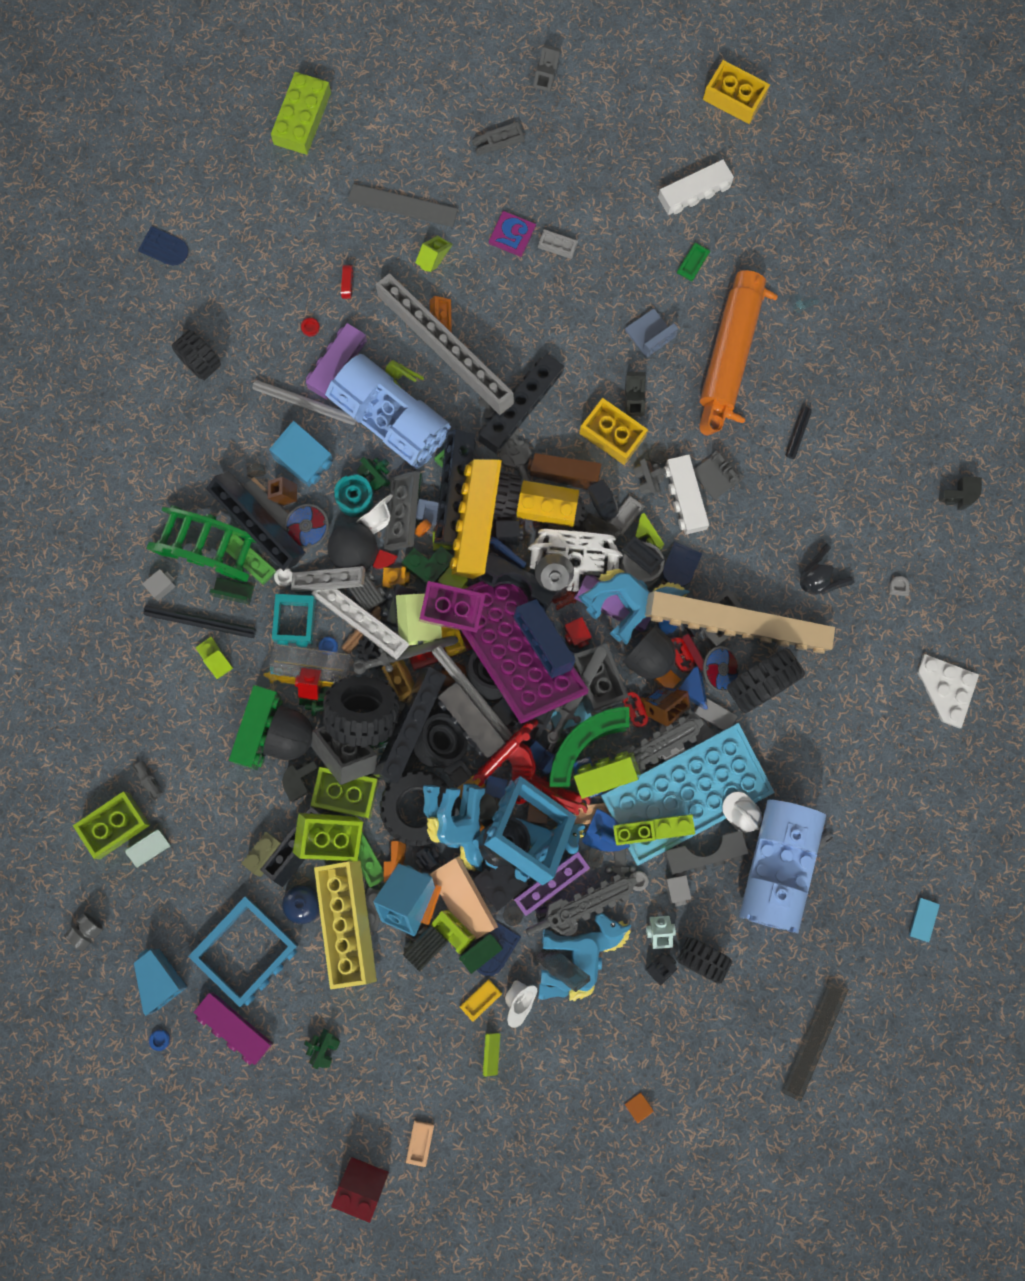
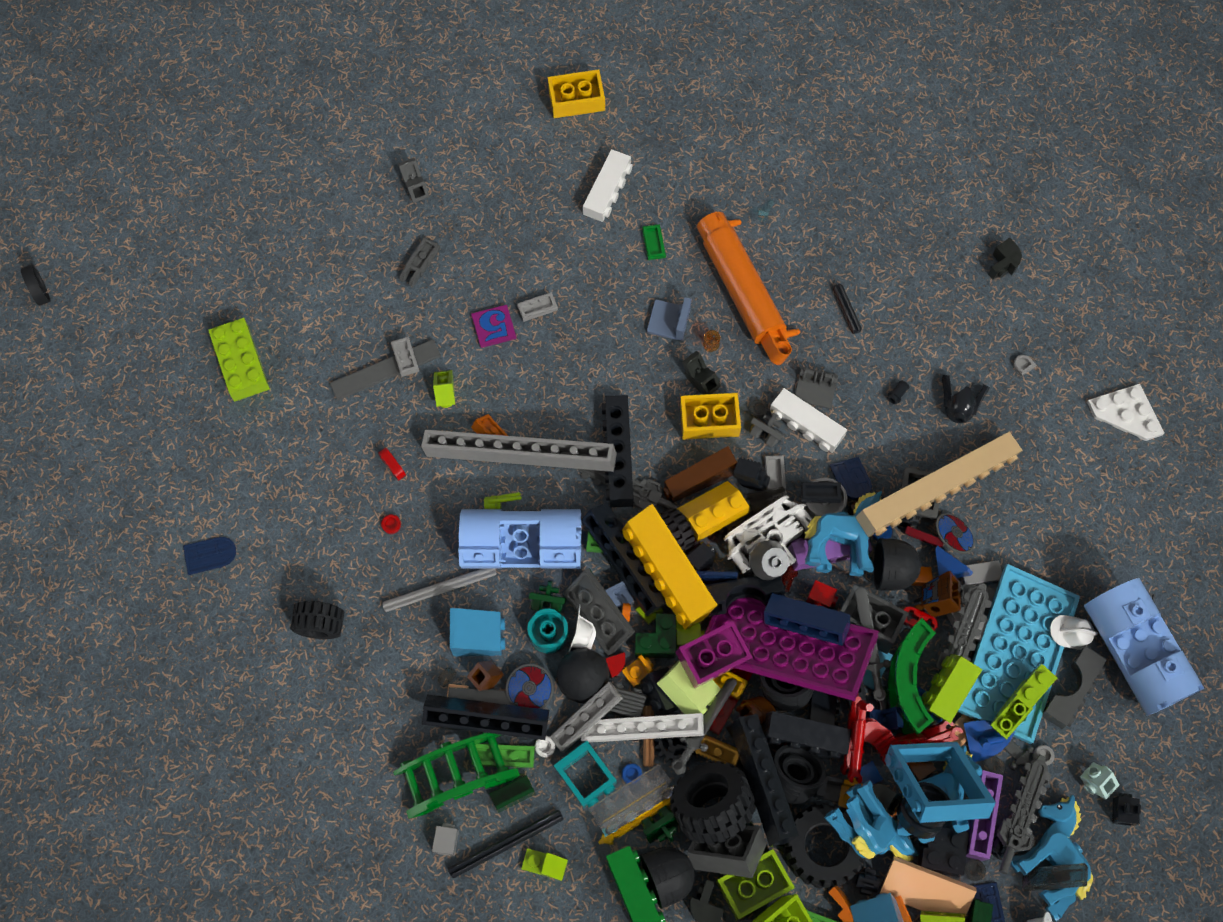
camera: 35 degrees left, 10 degrees down
(309, 683) = (648, 816): red brick -> none
(338, 354) = (438, 534): medium lavender brick -> none
(423, 205) = (405, 356): none -> light grey plate
(472, 693) = (768, 706): light grey axle -> none
(646, 529) = (800, 471): lime slope -> none
(669, 370) = (708, 337): none -> clear orange bush
(678, 890) = (1080, 735): light grey brick -> none
(685, 653) = (916, 543): red beam -> none
(704, 960) = (1153, 773): black tyre -> none
(765, 680) = (1001, 513): black tyre -> none
(776, 529) = (898, 392): none -> black pin

